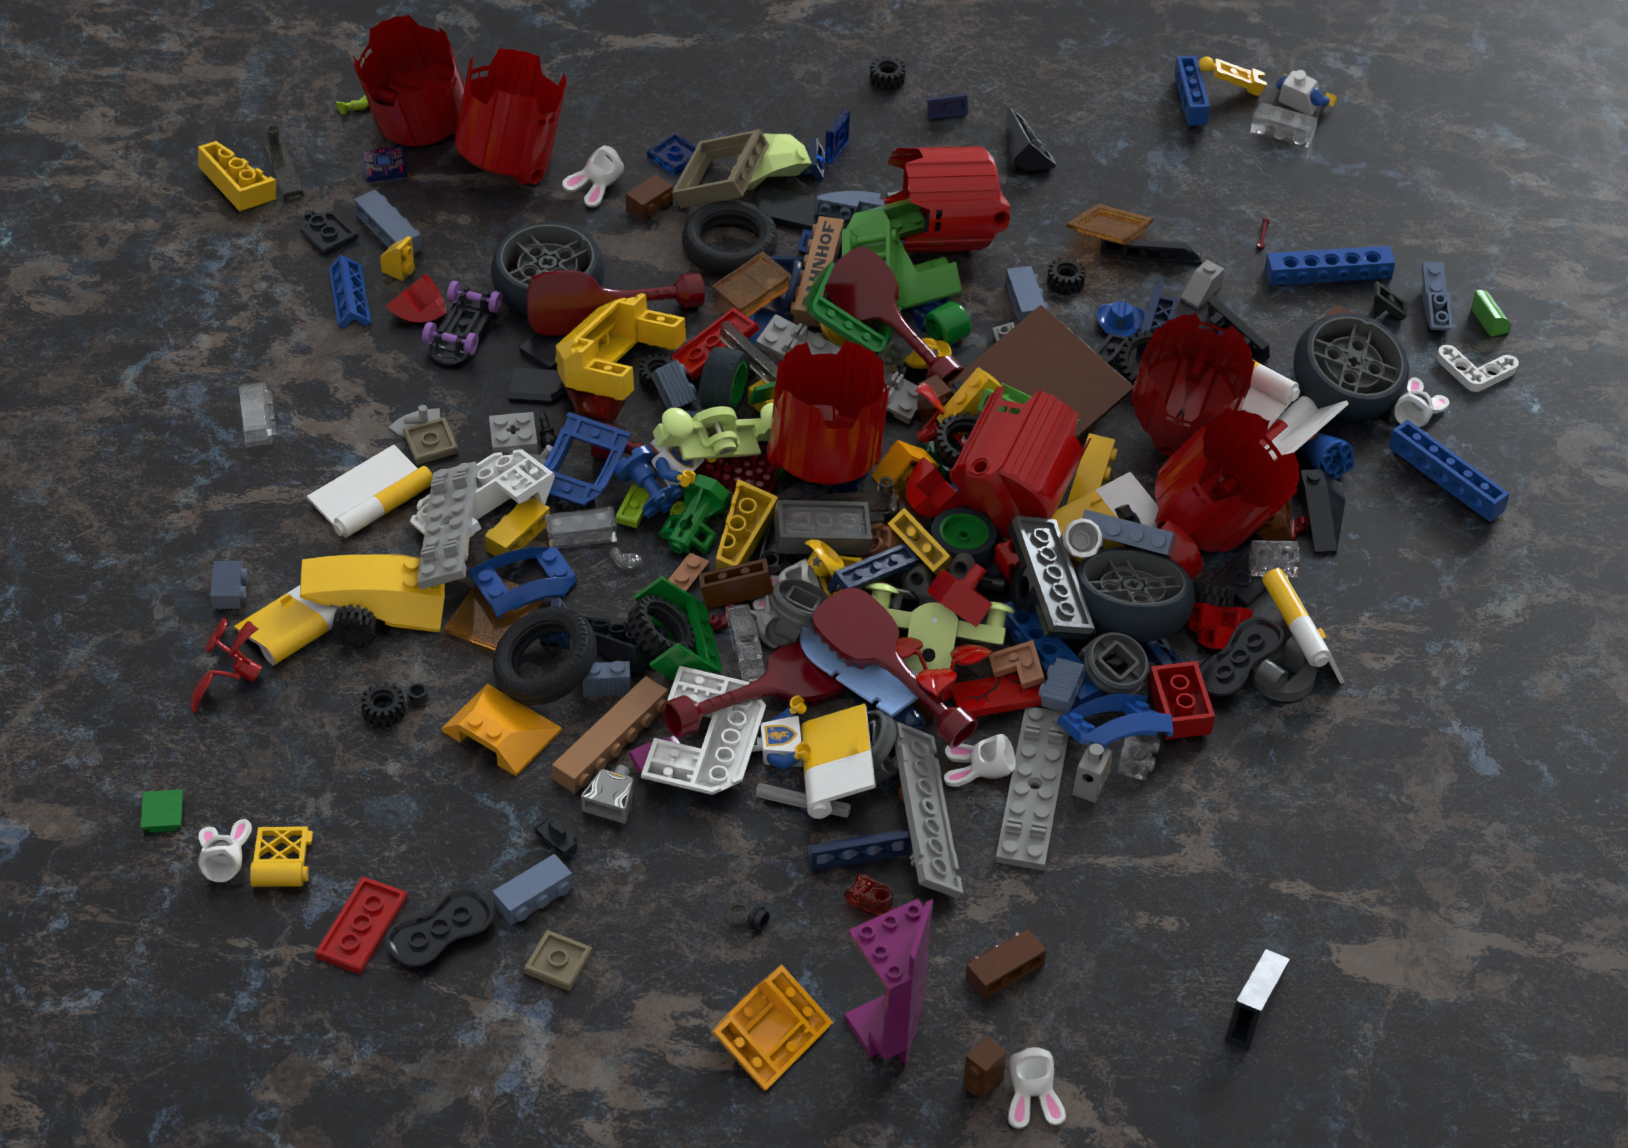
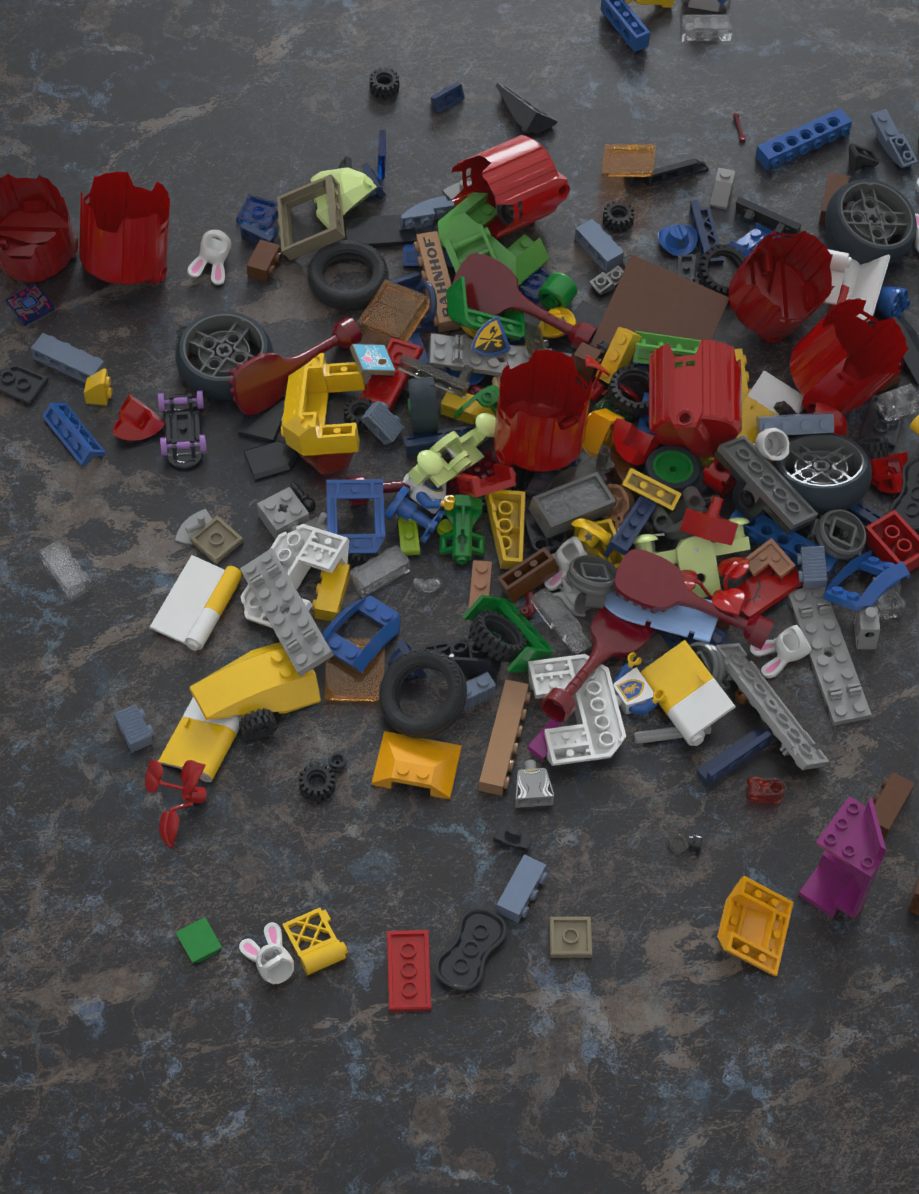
camera: 25 degrees left, 10 degrees up
(657, 166) = (253, 233): none -> dark blue tile
(696, 319) = (372, 359): none -> tile
(719, 473) = (476, 487): none -> red window
(832, 335) = (490, 339): none -> shield

